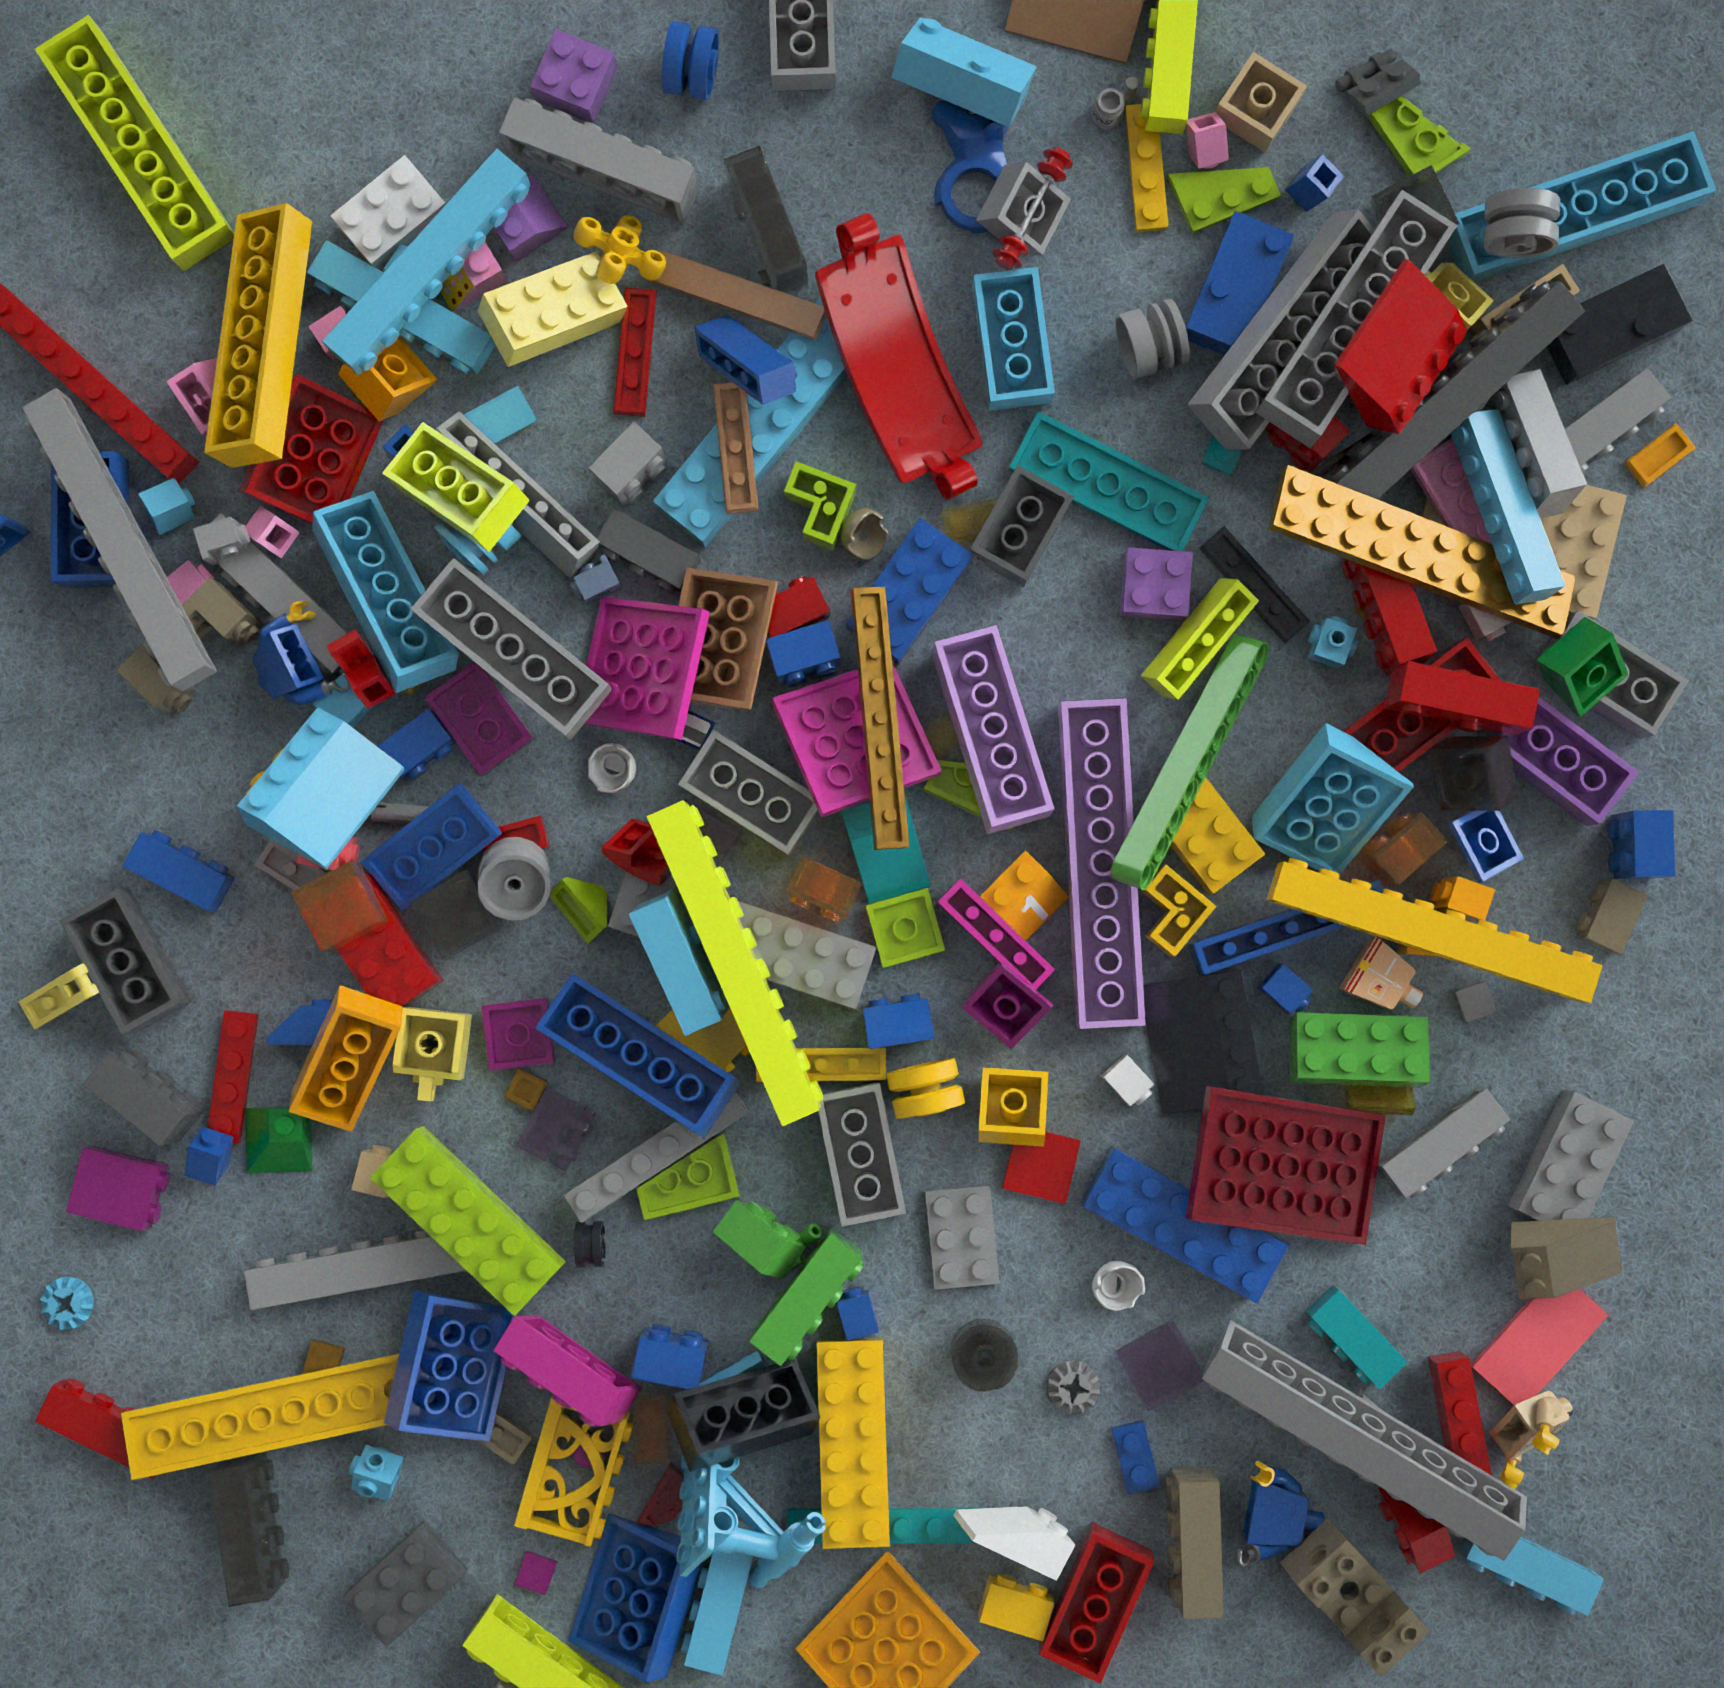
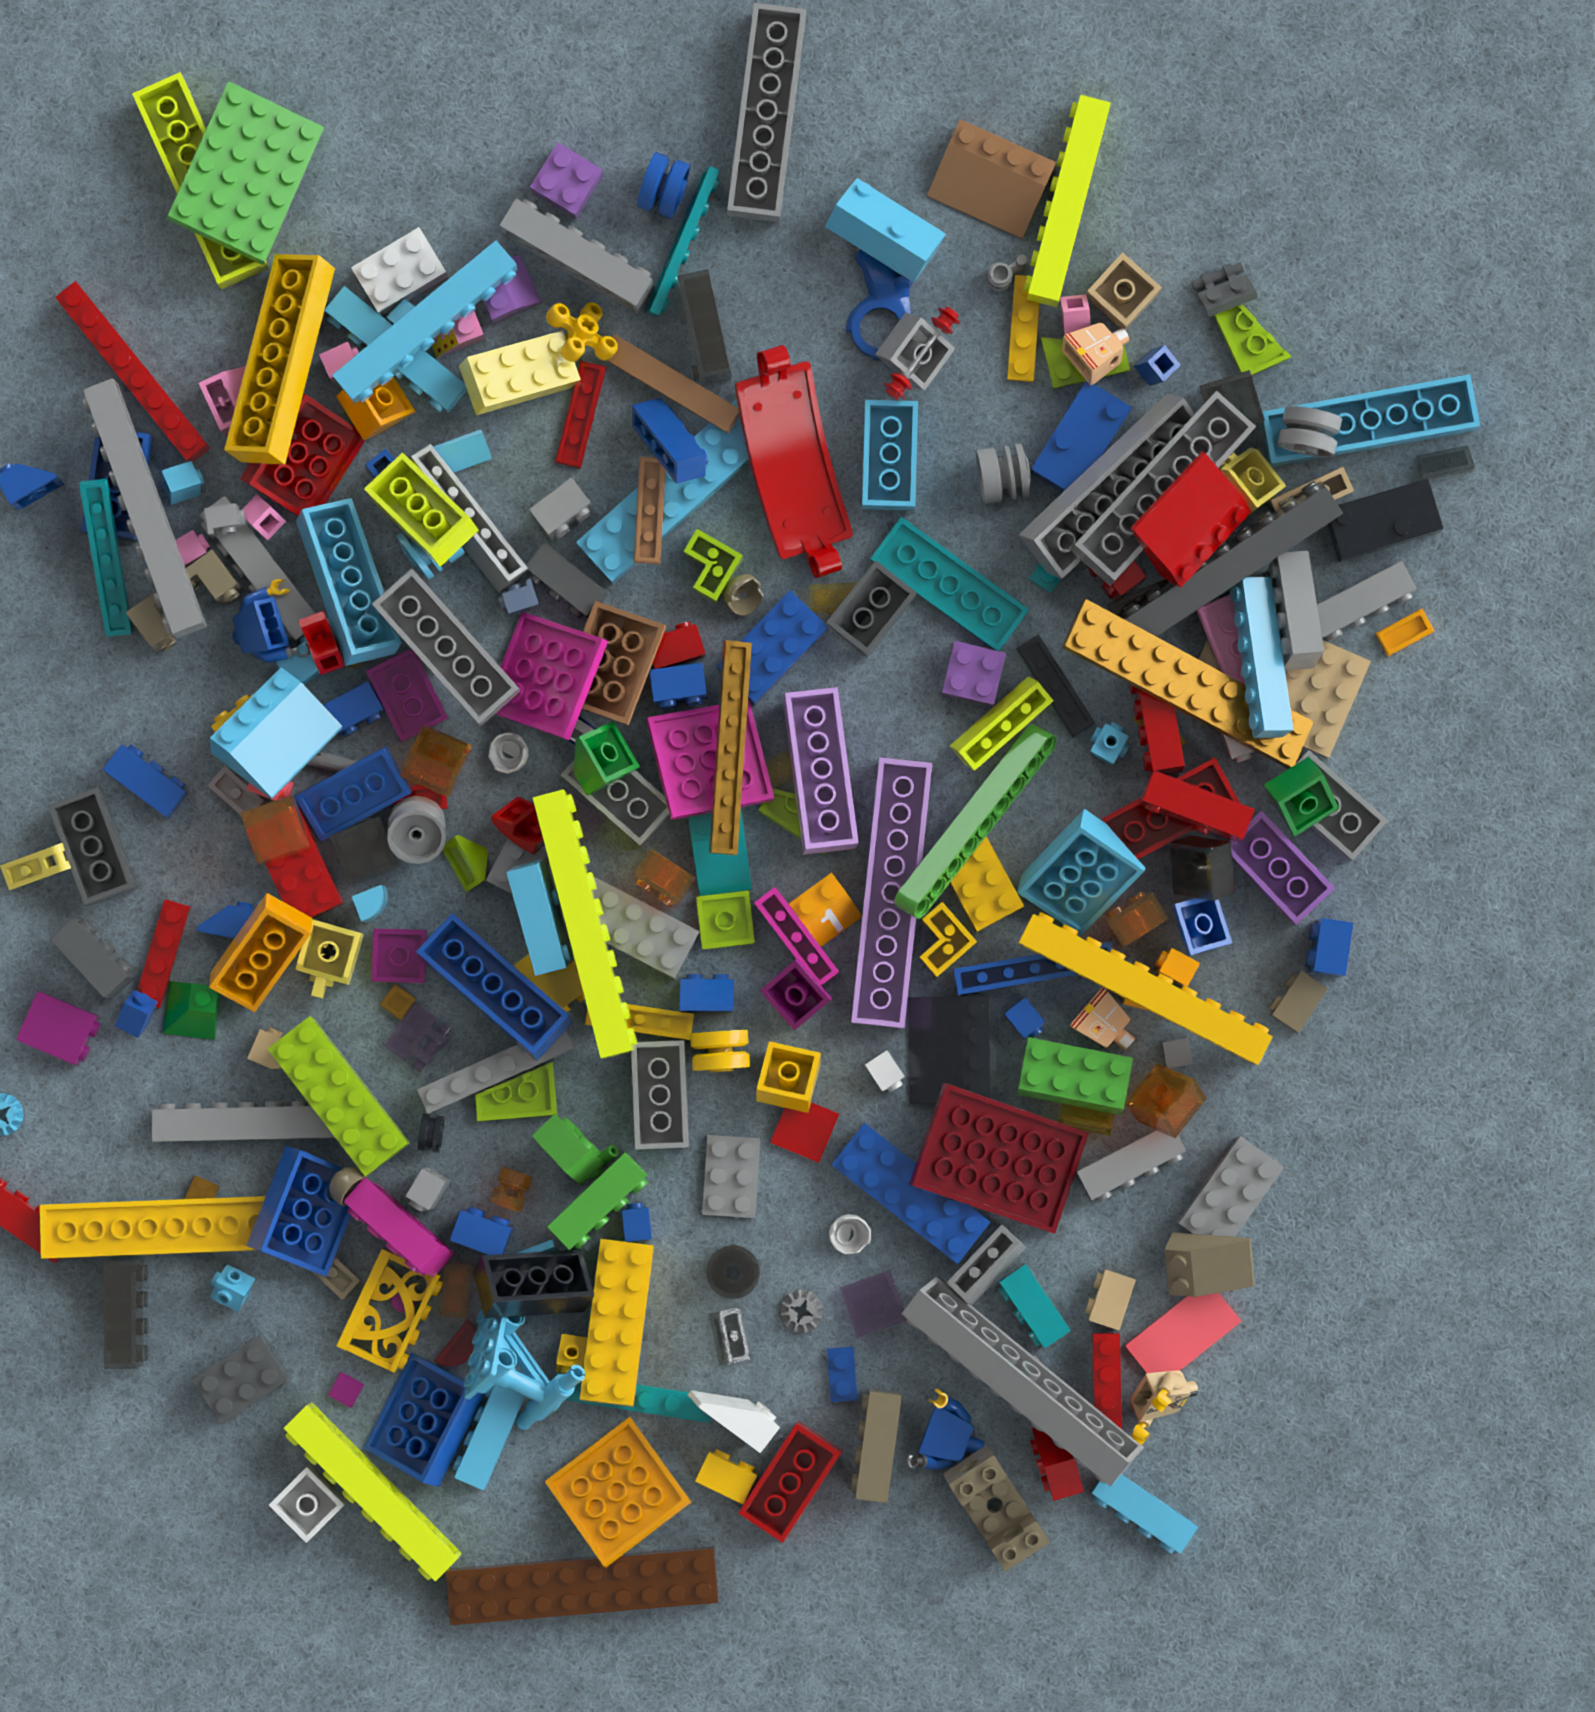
camera: 10 degrees right, 0 degrees up
(84, 605) = (106, 557): none -> teal plate
(184, 122) = (245, 173): none -> bright green plate
(473, 976) = (371, 903): none -> medium azure brick
(491, 1327) = (344, 1183): none -> dark tan hair
(524, 791) = (436, 761): none -> clear orange brick
(594, 1317) = (427, 1189): none -> light grey brick
(698, 1285) = (515, 1180): none -> clear orange wheel
(725, 755) = (602, 758): none -> green slope
(727, 115) = (686, 232): none -> teal plate
(803, 1490) = (571, 1352): none -> yellow brick
(991, 1432) = (729, 1336): none -> clear smoke slope
(1238, 174) = (1094, 350): none -> light nougat torso
(1290, 1297) = (986, 1264): none -> light grey brick
(1446, 1314) = (1110, 1299): none -> tan brick
(1478, 1063) = (1166, 1100): none -> clear orange brick
(1674, 247) = (1445, 463): none -> clear smoke slope

